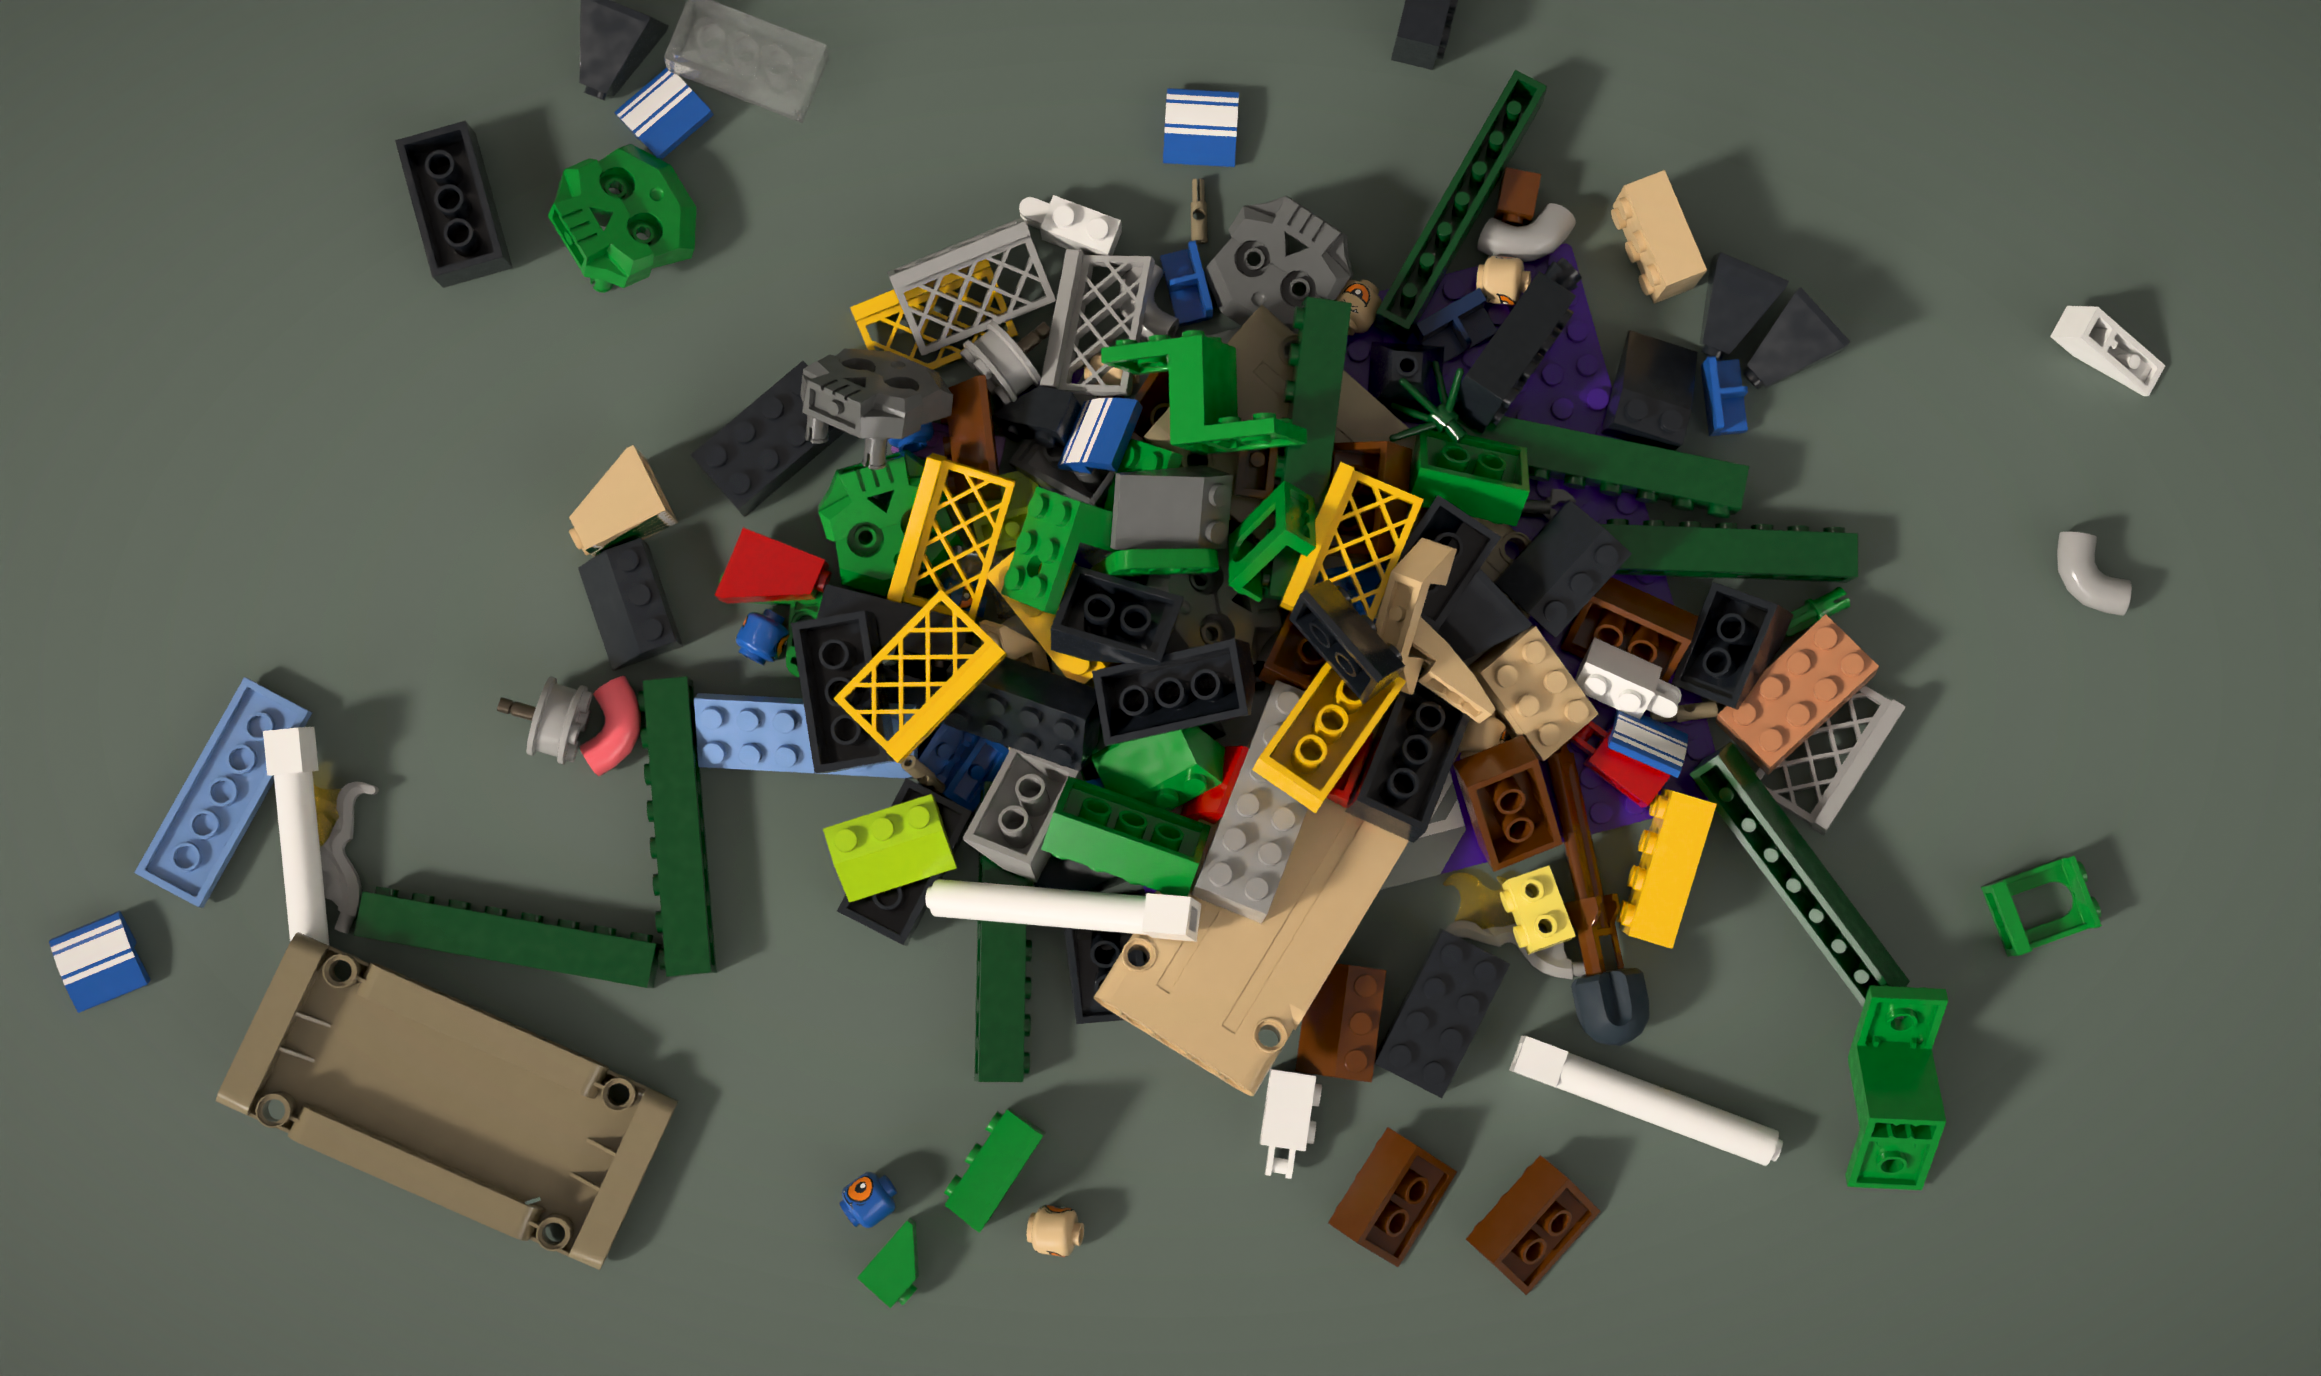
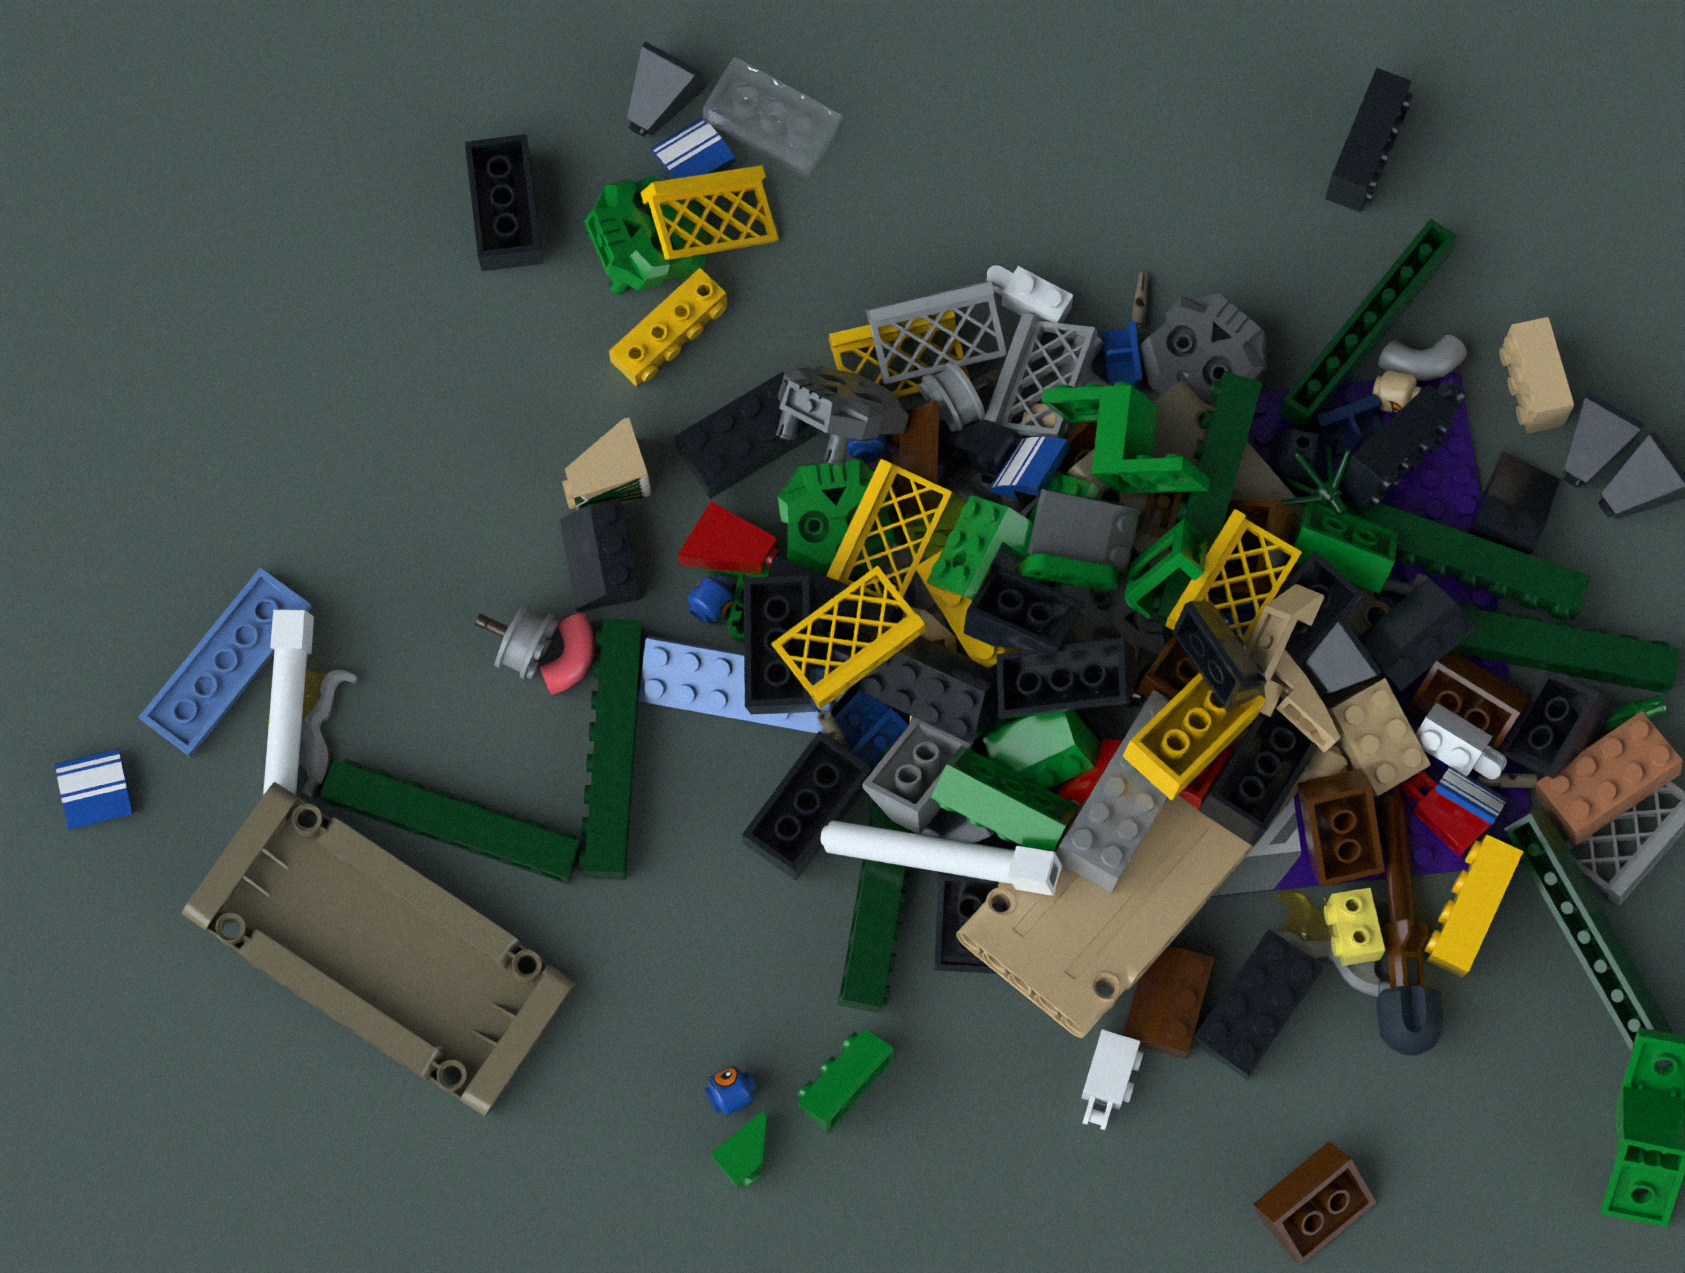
camera: 10 degrees right, 10 degrees down
(666, 324) = (669, 327): none -> yellow brick
(682, 153) = (702, 187): none -> yellow fence
(890, 848) = (797, 785): lime slope -> none
(1054, 1230) = (889, 1143): tan head -> none
(1200, 127) = (1152, 230): slope -> none
(1364, 304) = (1271, 395): tan head -> none
(1392, 1197) = (1193, 1159): reddish brown slope -> none
(1517, 197) = (1419, 325): reddish brown brick -> none
(1646, 1101) = (1351, 1068): white brick -> none
(1724, 396) = (1578, 519): blue panel -> none

